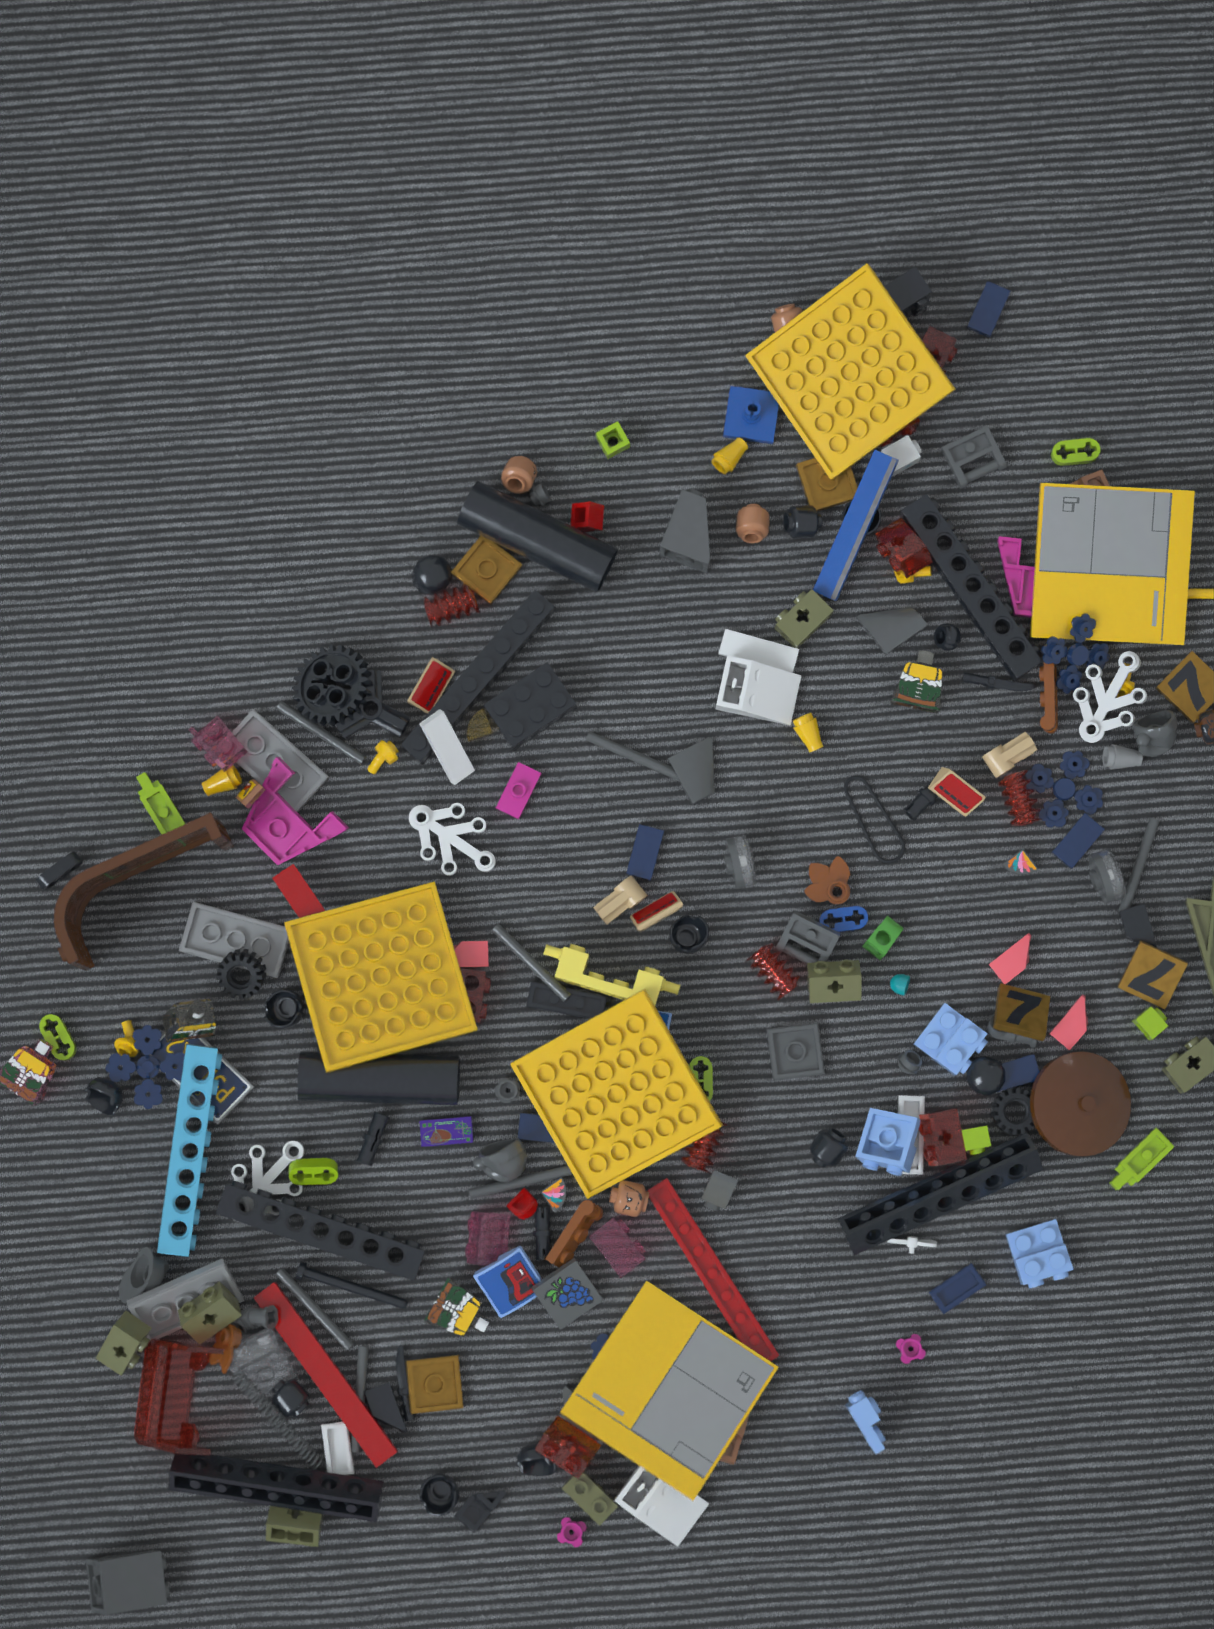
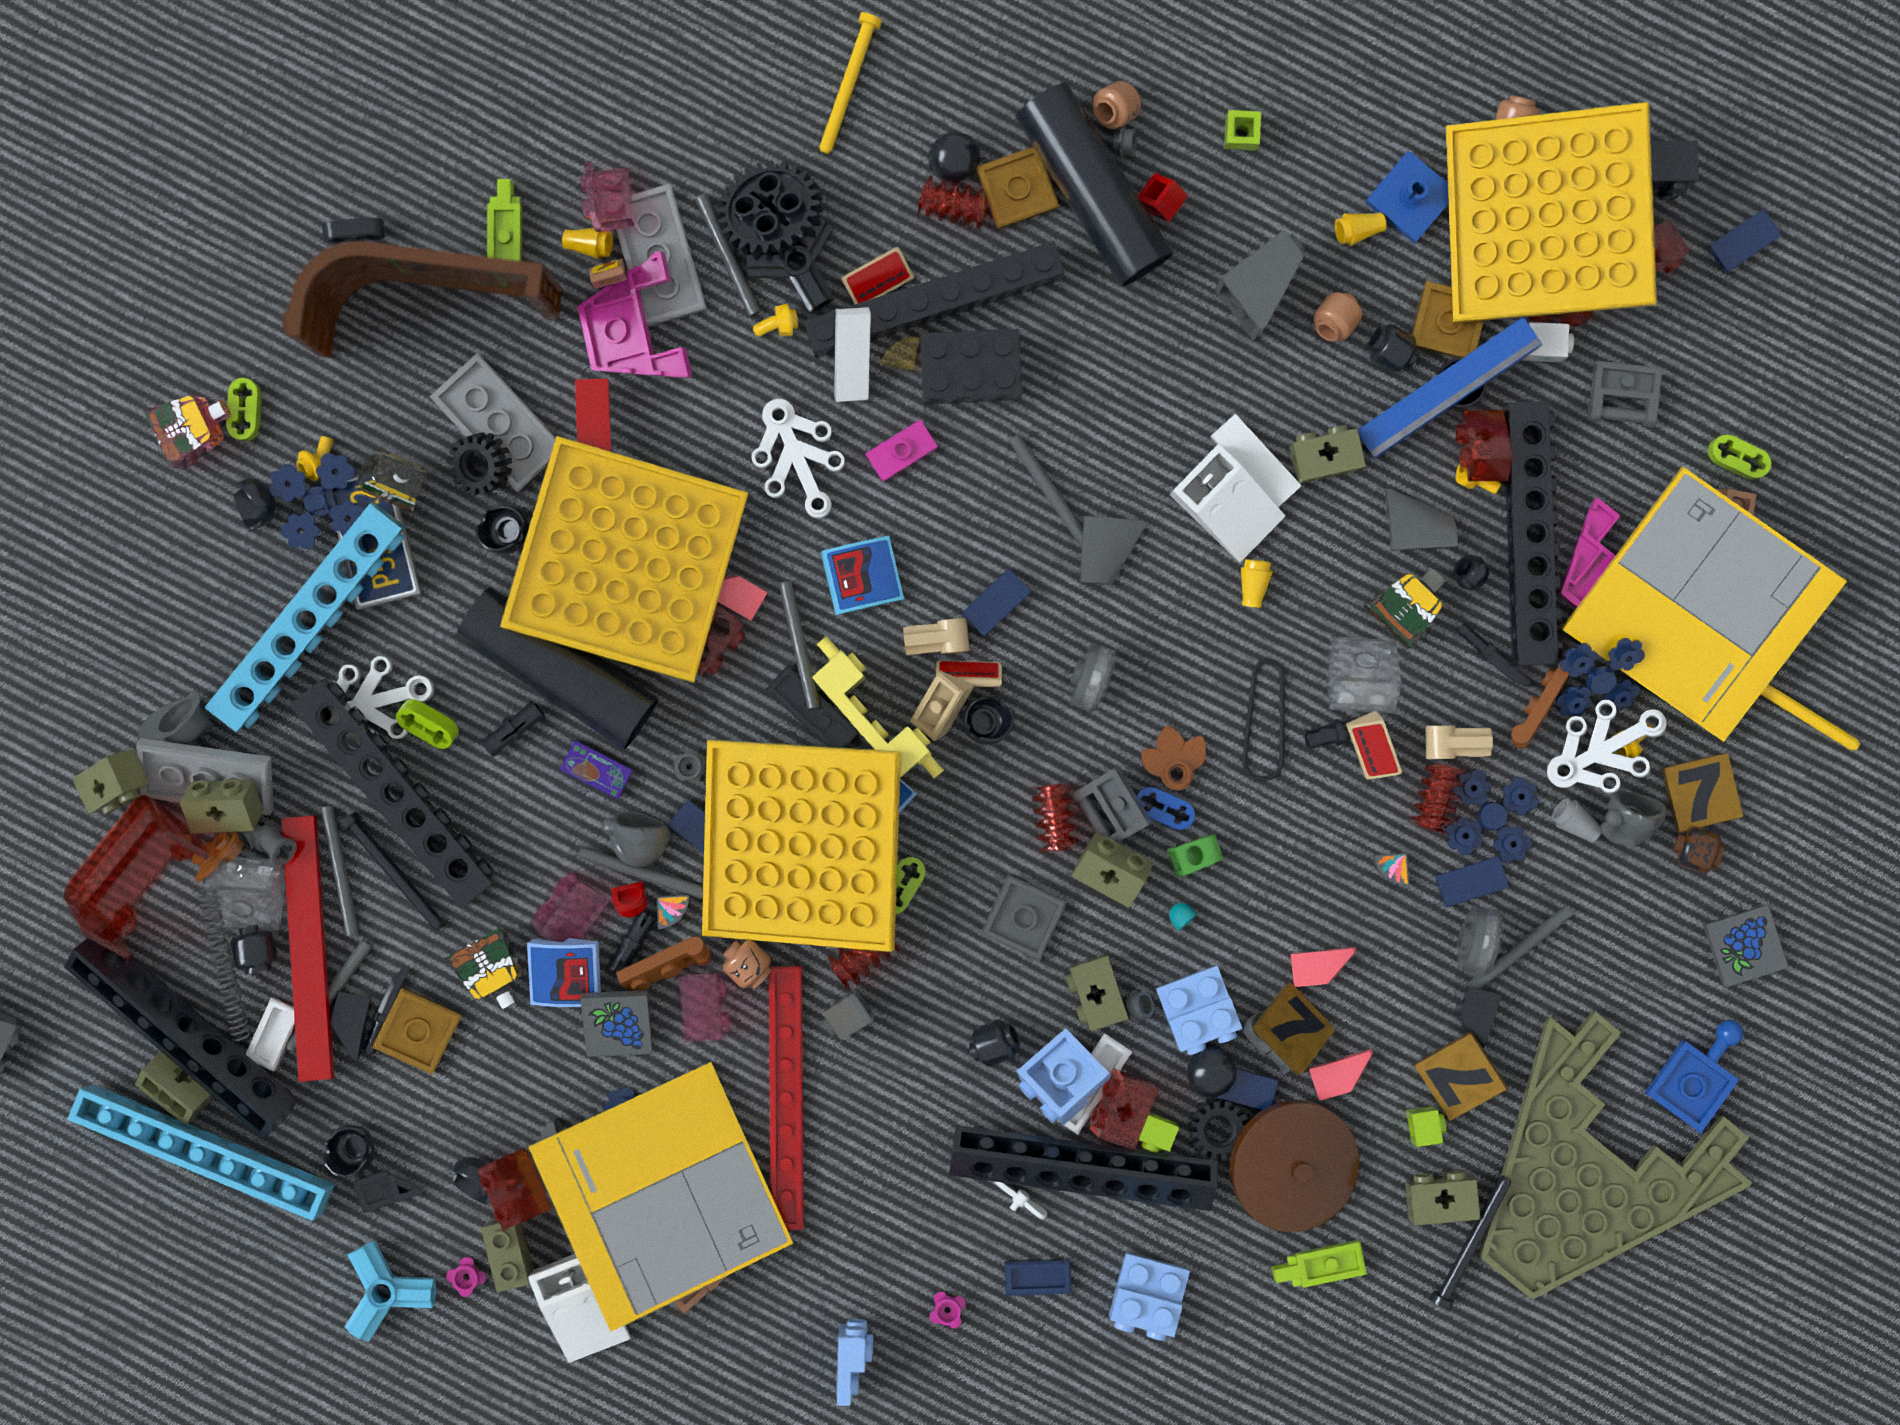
camera: 30 degrees right, 5 degrees up
(320, 522) = (869, 23): none -> yellow bar
(339, 1558) = (201, 1151): none -> medium azure brick
(521, 1593) = (405, 1291): none -> medium azure piece
(544, 889) = (862, 575): none -> slope
(651, 942) = (941, 705): none -> tan slope
(871, 1056) = (1110, 1007): none -> olive brick
(919, 748) = (1363, 675): none -> clear slope

